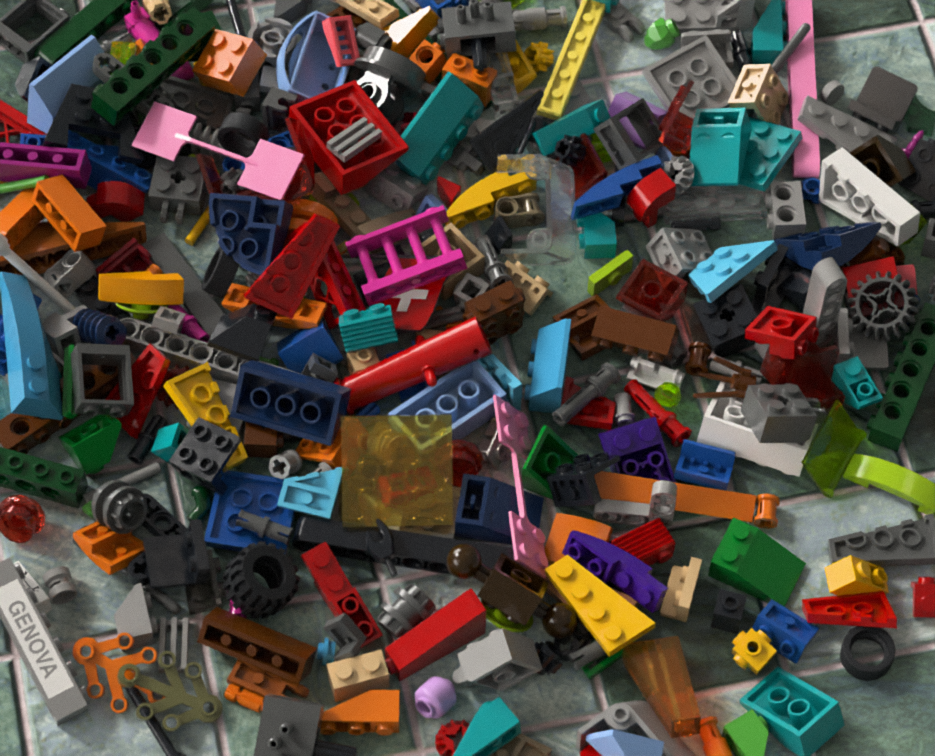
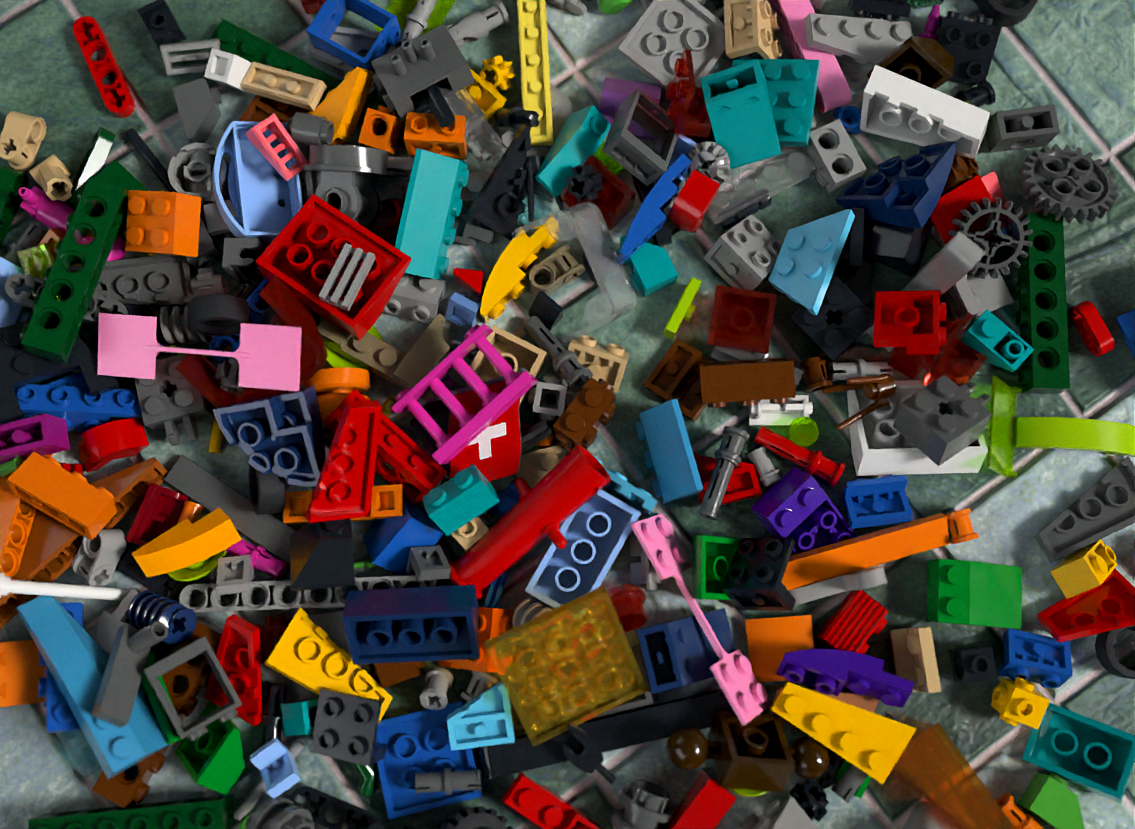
camera: 20 degrees left, 20 degrees up
(64, 337) = (125, 672): none -> dark grey piece
(135, 465) = (276, 767): none -> light blue bracket
(533, 86) = (515, 118): none -> black axle

